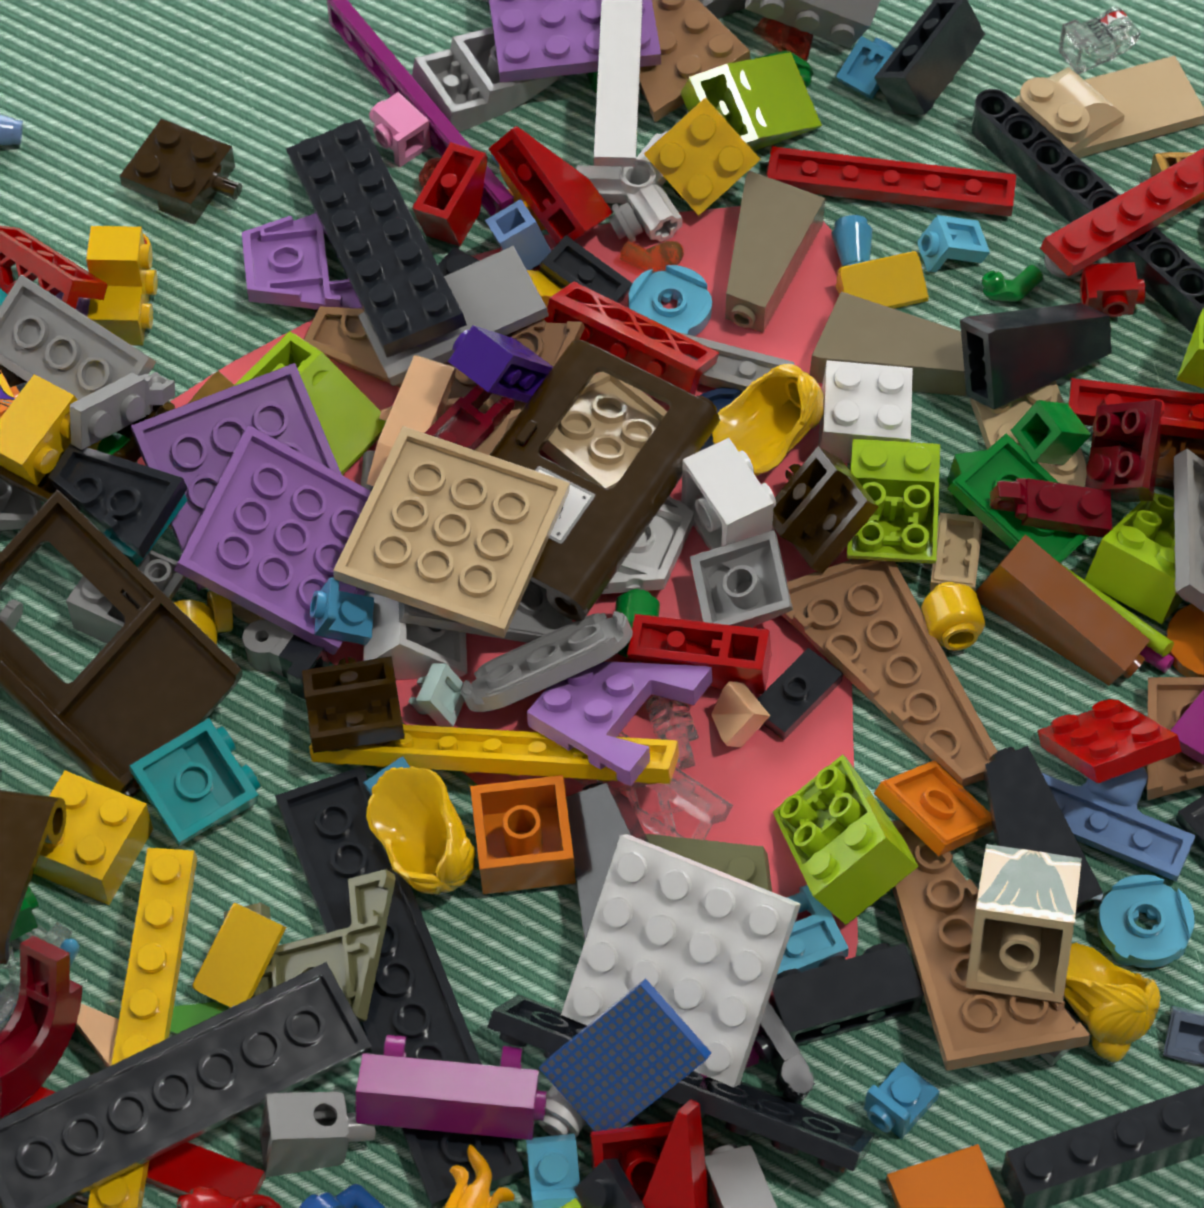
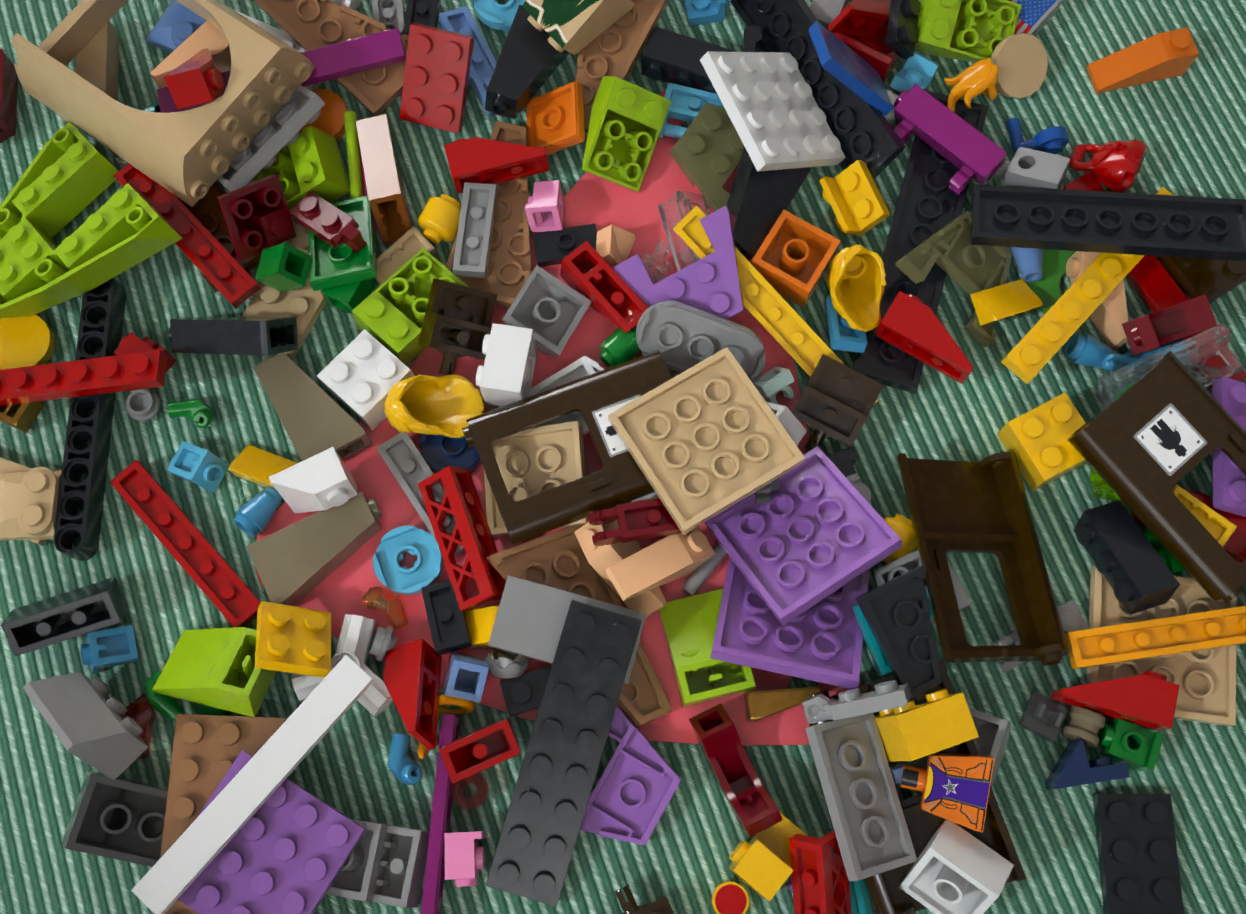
camera: 140 degrees left, 15 degrees up
(103, 977) = (1086, 350): none -> dark azure cone
(194, 333) = (734, 770): none -> dark red arch
(196, 781) = (962, 424): teal plate -> none
(311, 836) = (919, 333): none -> red slope
(342, 614) = (816, 458): dark azure bracket -> none
(499, 363) = (579, 538): dark purple brick -> none
(511, 960) = (854, 199): none -> yellow bracket
(800, 278) = (316, 483): none -> white slope
(852, 706) = (546, 207): none -> bright pink brick
(899, 615) = (475, 230): none -> light grey plate
(957, 692) = (492, 161): none -> red slope

